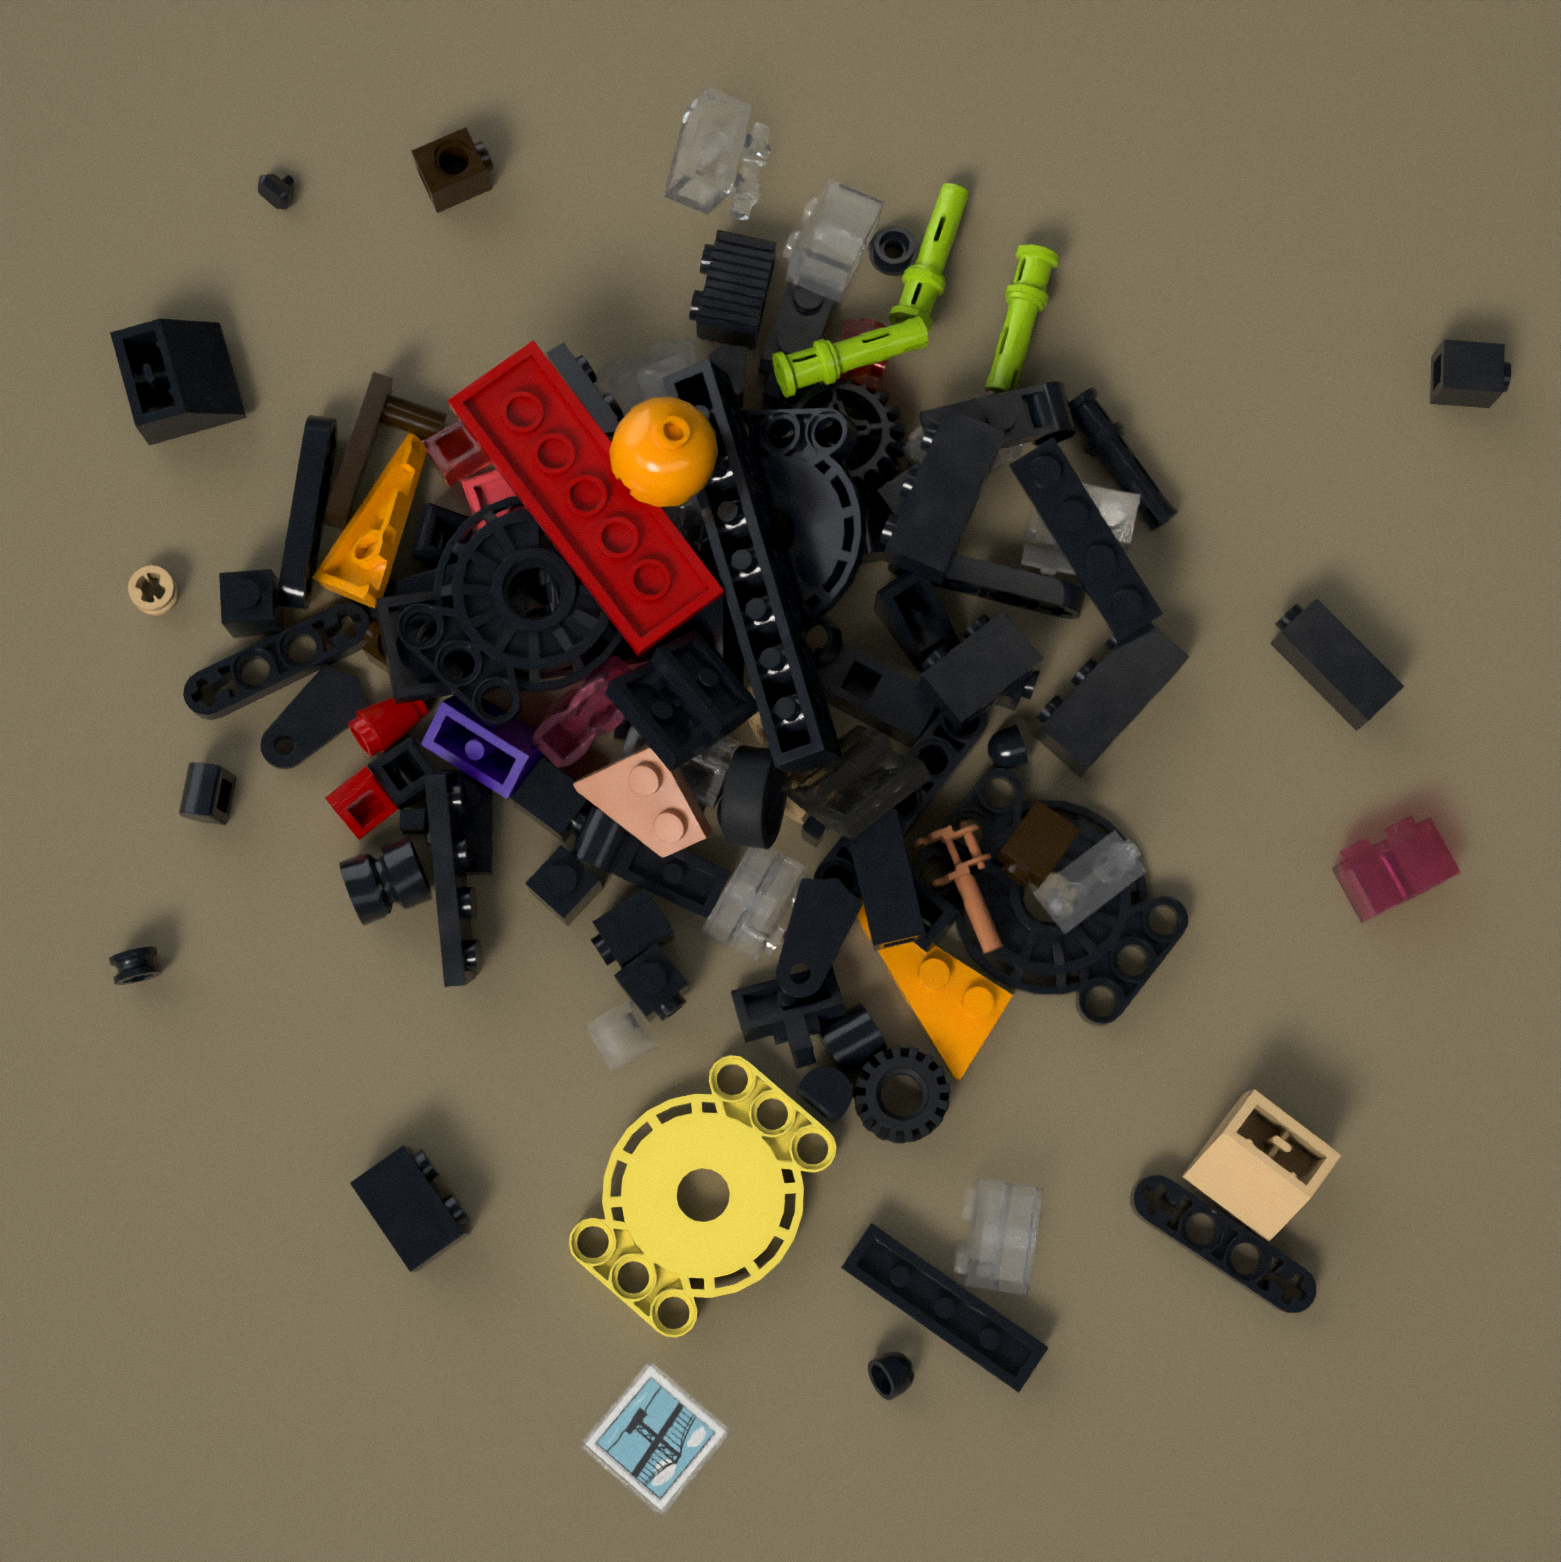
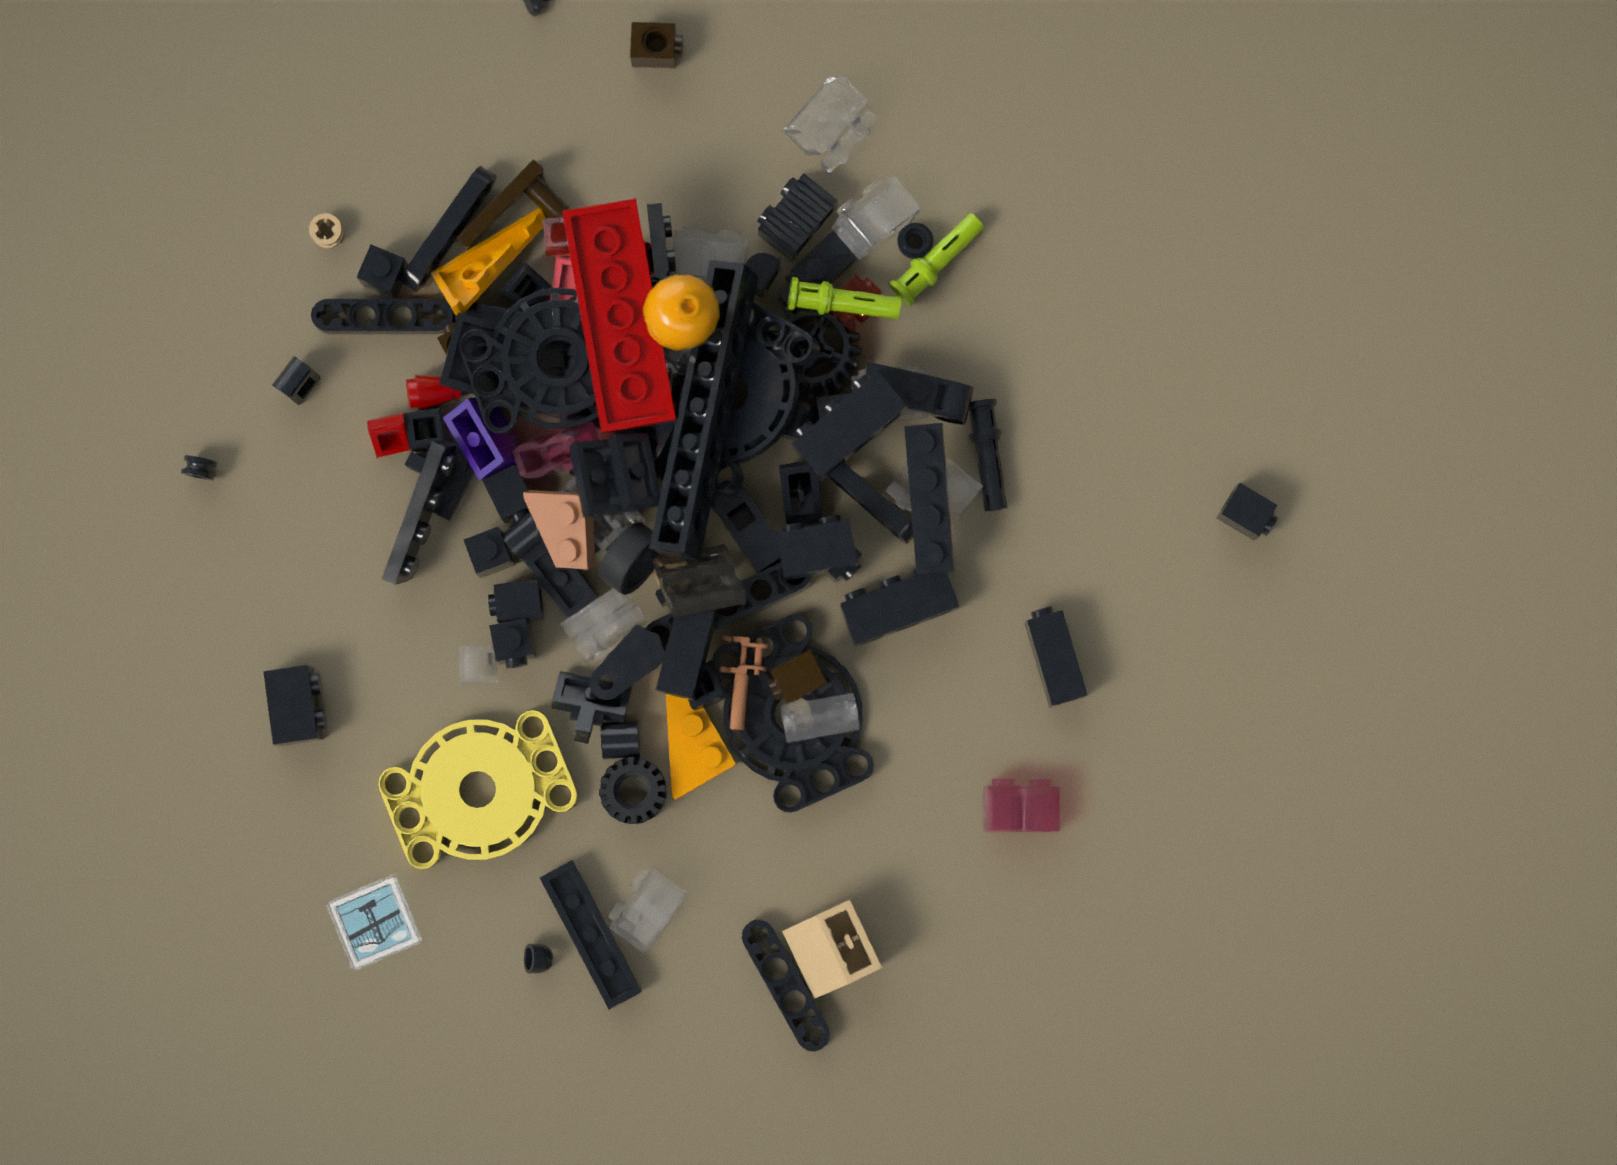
camera: 30 degrees right, 5 degrees up
(177, 377) = (408, 99): black slope -> none
(314, 717) = (388, 364): black piece -> none
(383, 881) = (381, 493): black wheel -> none
(826, 1091) = (587, 765): black brick -> none
(1007, 748) = (815, 605): black hinge -> none
(1025, 299) = (983, 317): lime pin -> none

